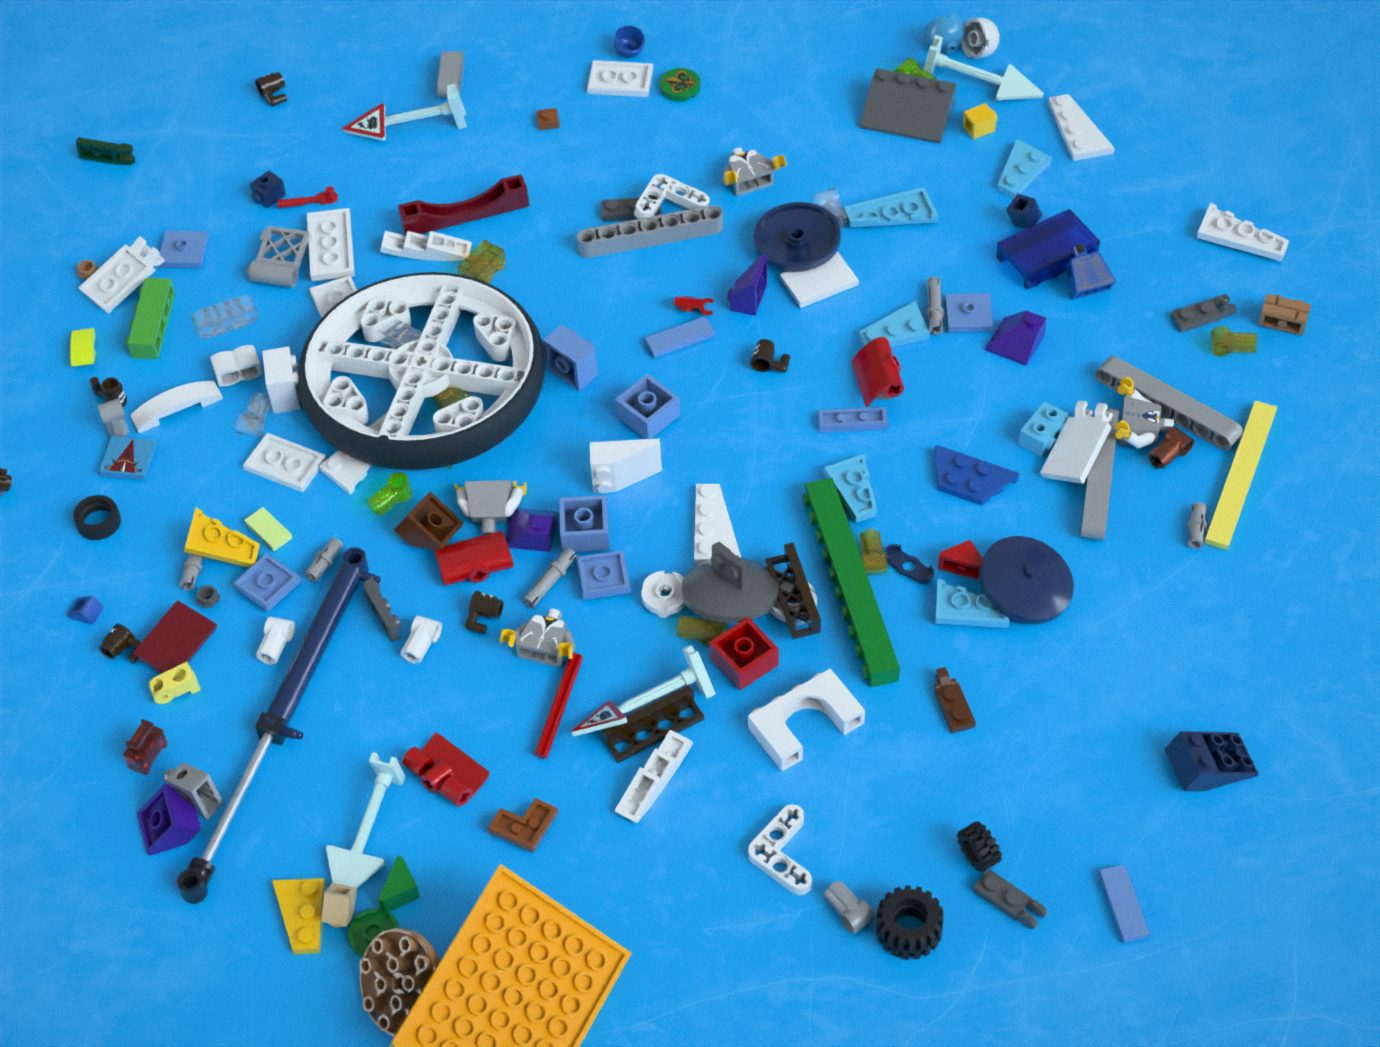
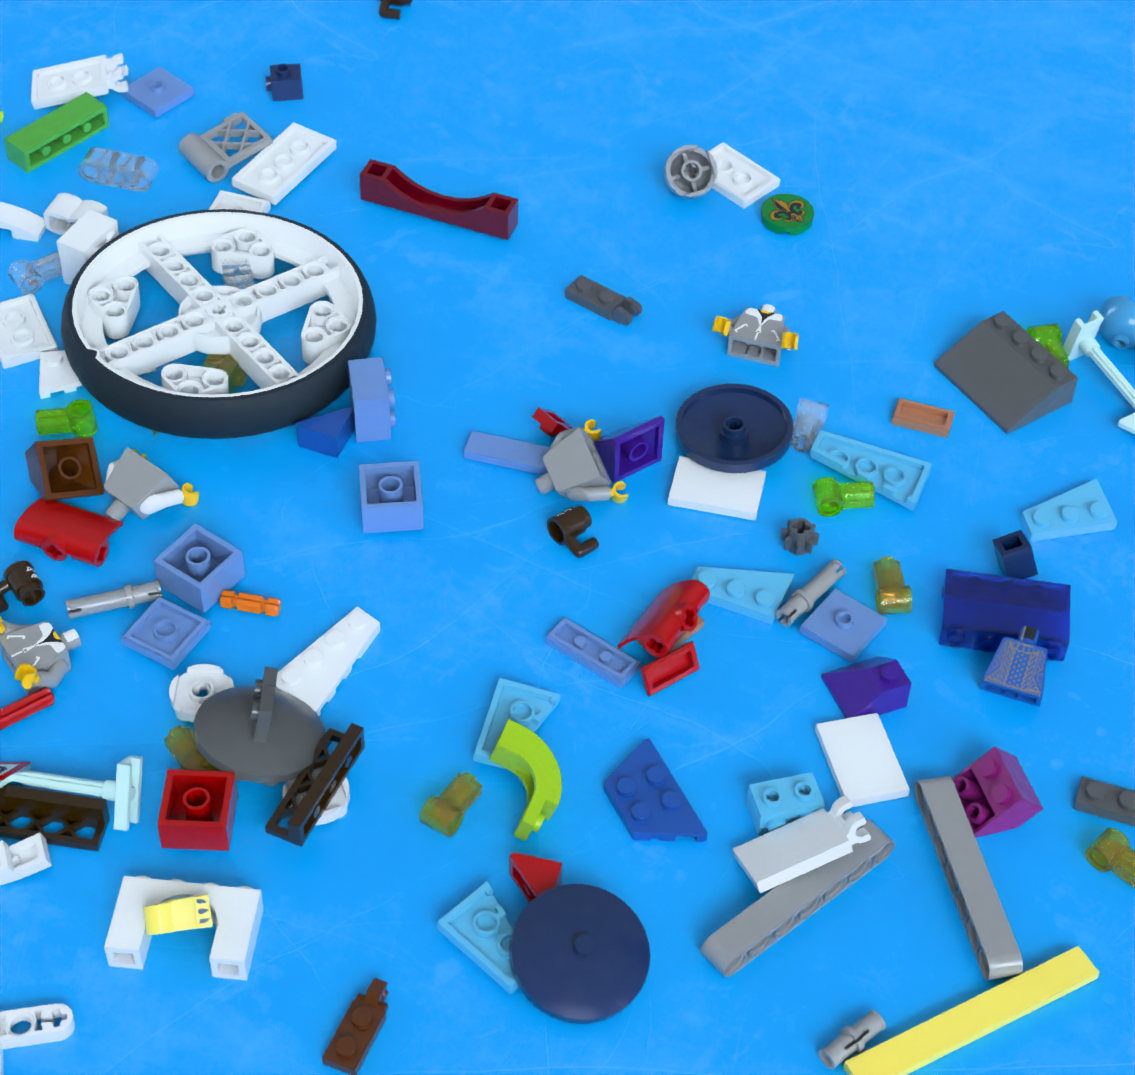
camera: 35 degrees right, 5 degrees down
(86, 269) = (57, 57): medium nougat plate -> none
(326, 197) = (332, 121): red piece -> none
(374, 122) = (531, 100): light aqua piece -> none
(432, 247) = (365, 217): white slope -> none
(450, 71) = (569, 77): light grey beam -> none
(483, 262) = (396, 264): clear yellow brick -> none
(532, 529) = (150, 539): dark purple slope -> none
(548, 119) = (618, 171): dark orange plate -> none
(561, 396) = (326, 432): none -> blue slope
(602, 92) = (690, 172): none -> light grey cylinder
(623, 463) = (298, 533): white slope -> none
(629, 41) = (775, 143): blue hair -> none
(630, 524) = (250, 603): none -> orange axle
(650, 231) = (594, 333): light grey beam -> none
(667, 191) = (650, 303): white beam -> none
(736, 318) = (577, 468): none -> light grey torso
(806, 710) = (178, 915): none -> light yellow leg
(851, 583) = (391, 823): green brick -> none
(887, 163) = (923, 417): none -> nougat tile
(892, 240) = (834, 497): none -> clear neon green piece
(896, 277) = (799, 536): none -> dark grey gear
(897, 558) = (477, 828): dark blue piece -> none
(902, 502) = (538, 770): none -> lime arch
(905, 401) = (670, 668): none -> red tile
(978, 277) = (891, 592): none -> clear yellow piece
(979, 121) = (1072, 435): yellow brick -> none
(1054, 379) = (862, 759): none -> white tile
(1139, 419) = (908, 870): torso -> none
(1141, 348) = (996, 793): none -> magenta slope
(1173, 445) = (923, 927): copper piece -> none

